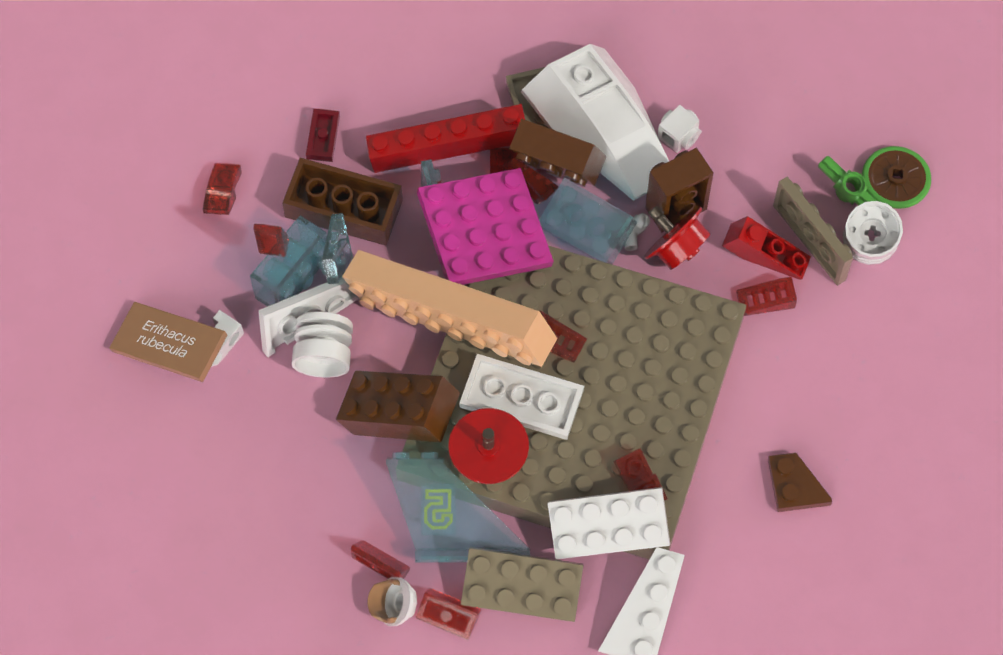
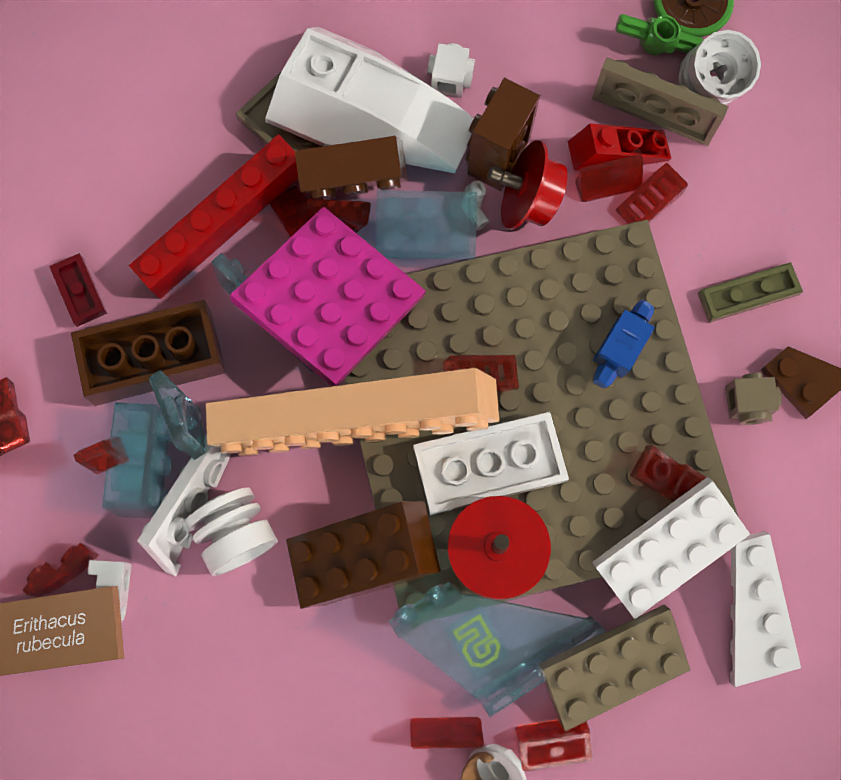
camera: 35 degrees left, 10 degrees up
(203, 310) = (51, 577): none -> clear red slope
(666, 372) = (623, 344): none -> blue piece
(744, 265) = (610, 178): none -> clear red slope
(744, 472) = (753, 399): none -> dark tan brick
(796, 402) = (750, 292): none -> olive tile

